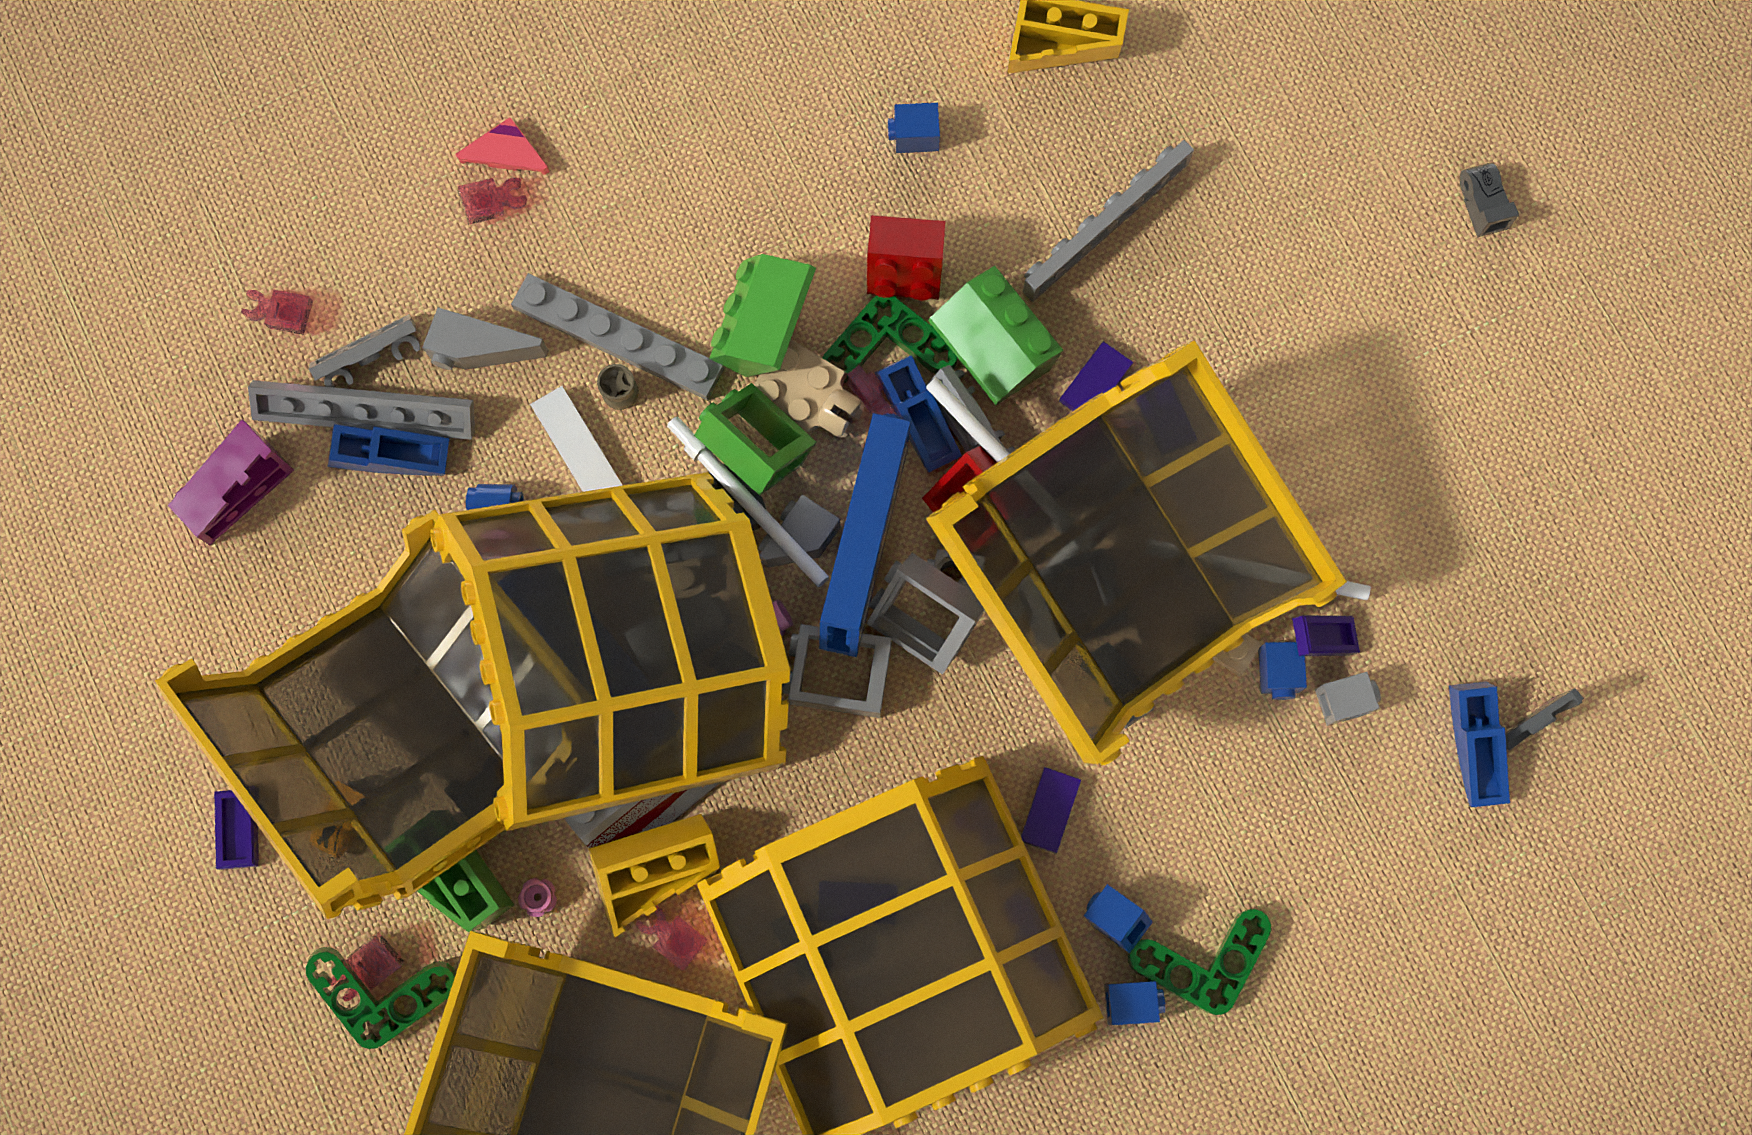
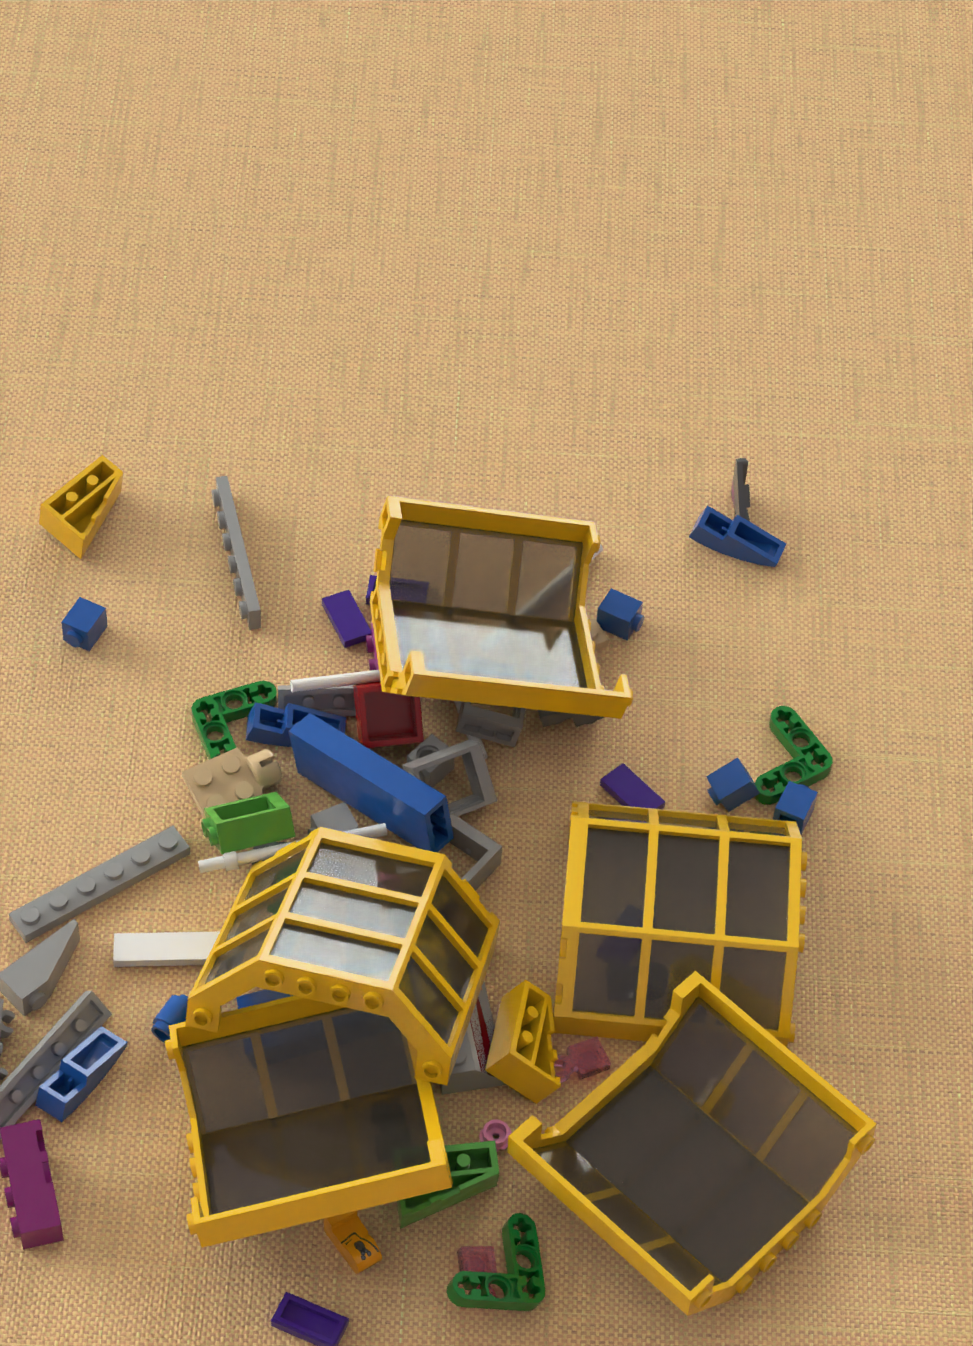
camera: 65 degrees left, 25 degrees down
(614, 380) = (142, 896): dark tan wheel -> none
(761, 314) = (160, 773): bright green slope -> none
(869, 389) = (256, 742): clear pink plate -> none
(905, 257) = (181, 669): red piece -> none
(996, 335) = (274, 649): bright green slope -> none
(1325, 635) = (614, 577): dark purple tile -> none
(1348, 698) = (663, 591): light grey brick -> none
(1487, 200) = (376, 351): dark grey leg -> none

